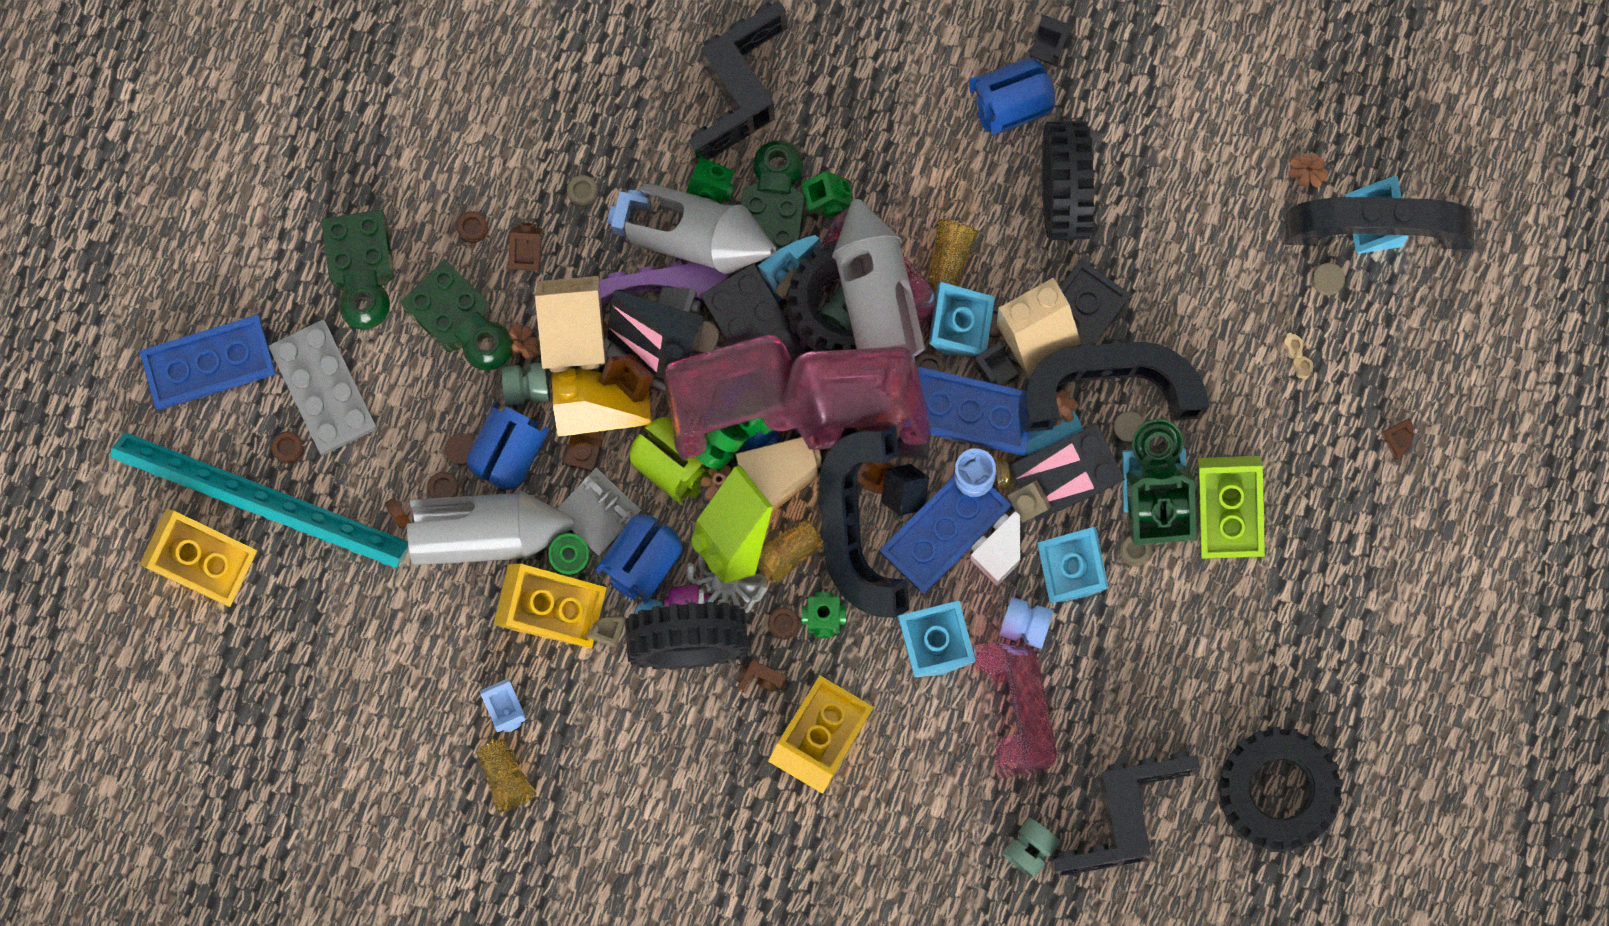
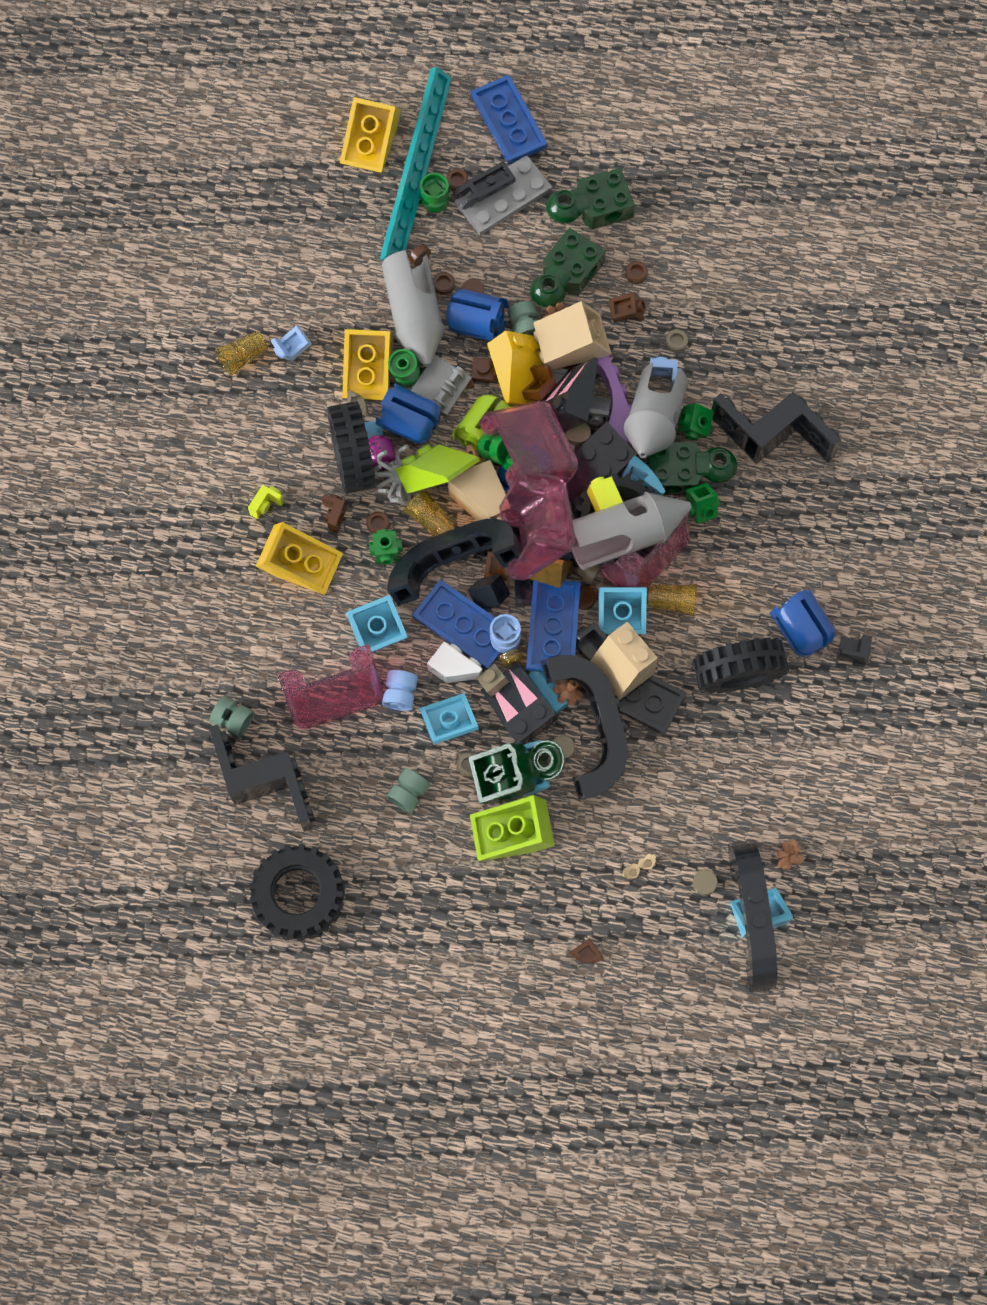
camera: 75 degrees right, 5 degrees down
(308, 478) = (434, 192): none -> green wheel
(311, 405) = (484, 185): none -> black hinge
(734, 774) = (261, 503): none -> neon yellow bracket
(823, 308) = (603, 493): none -> neon yellow brick
(1163, 630) = (409, 788): none -> sand green wheel

